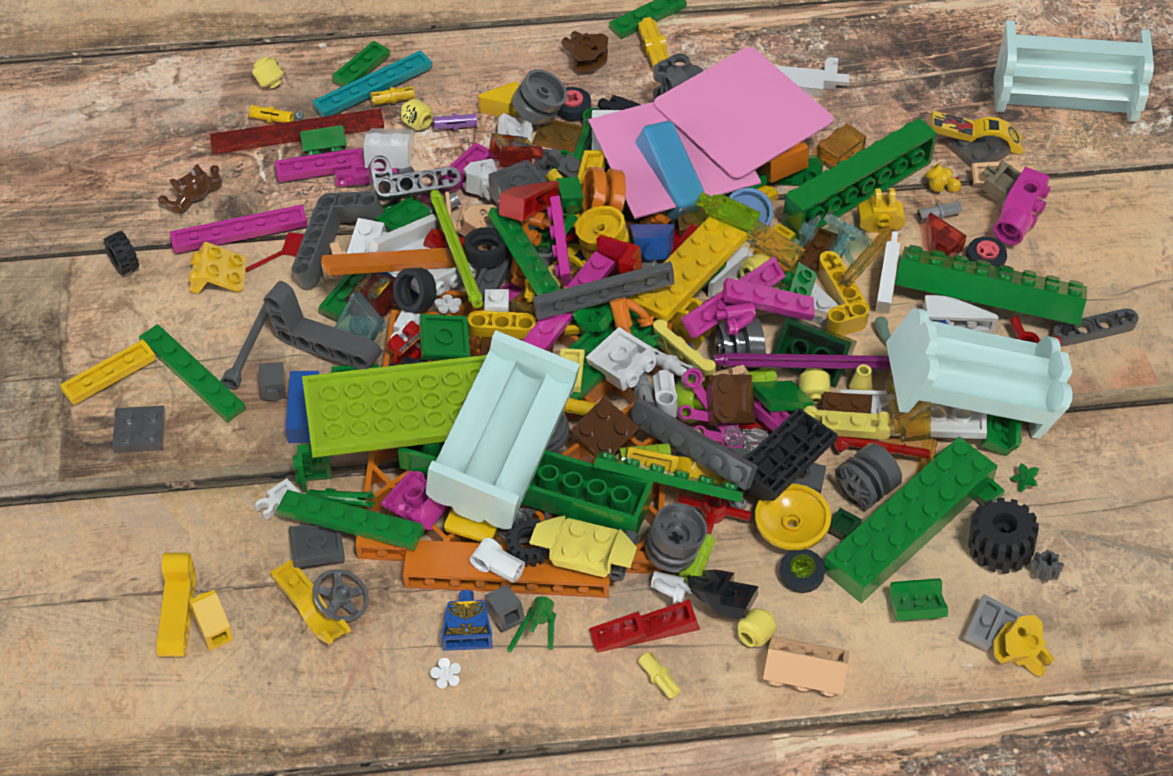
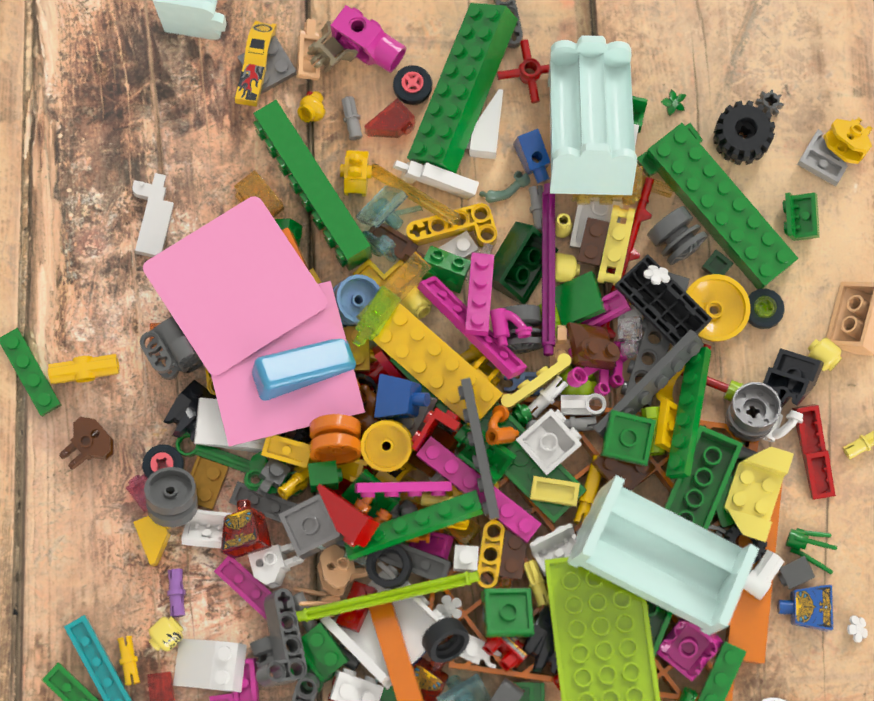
camera: 85 degrees left, 25 degrees up
(631, 421) = (628, 438): none -> green tile
(814, 438) = (657, 275): none -> white plant

